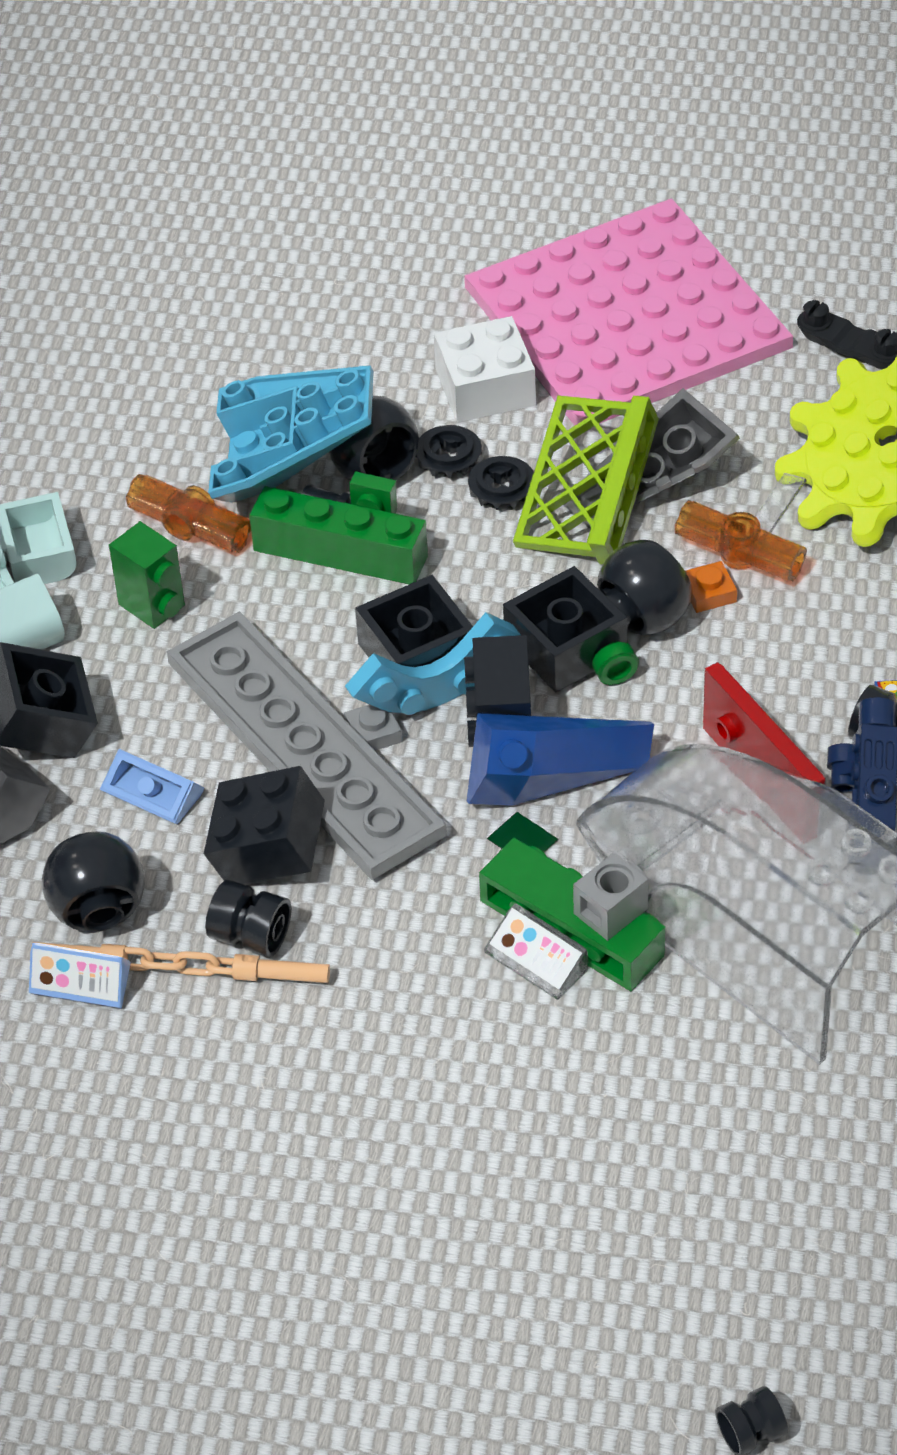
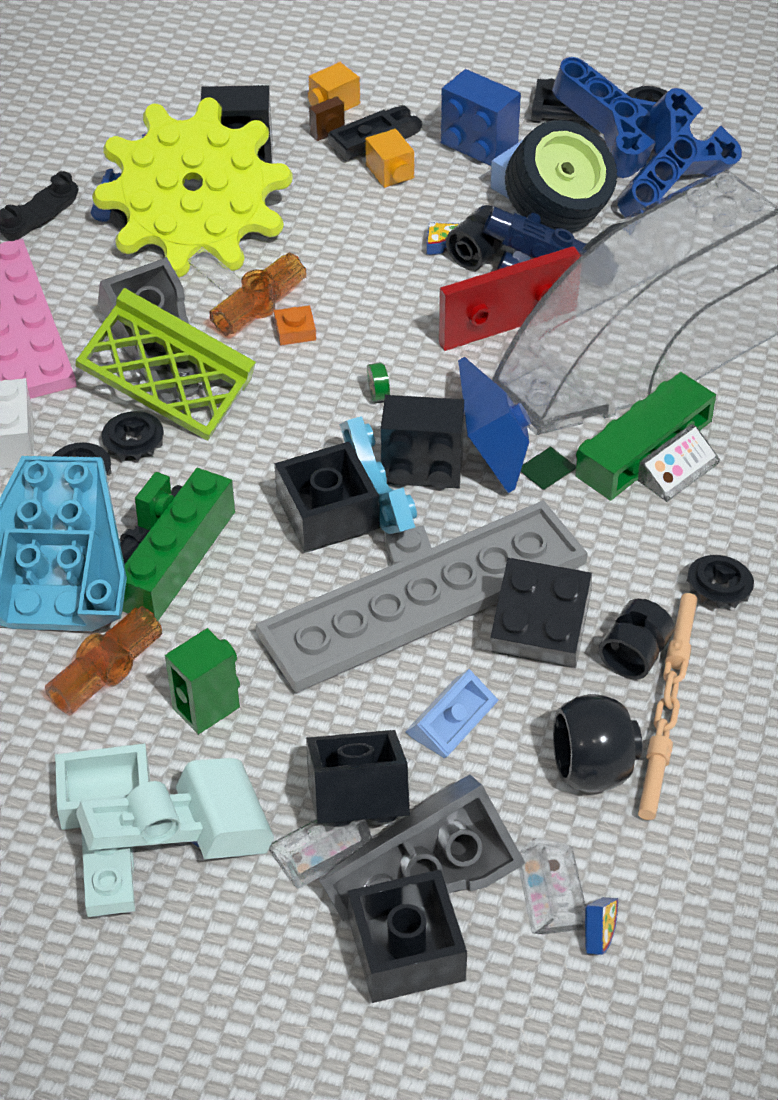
camera: 85 degrees left, 0 degrees up
(78, 975) = (685, 772): slope -> none
(360, 981) = (724, 570): none -> black gear
(565, 626) = (337, 392): black brick -> none
(611, 896) = (664, 385): light grey brick -> none
(646, 586) = (311, 343): black wheel -> none

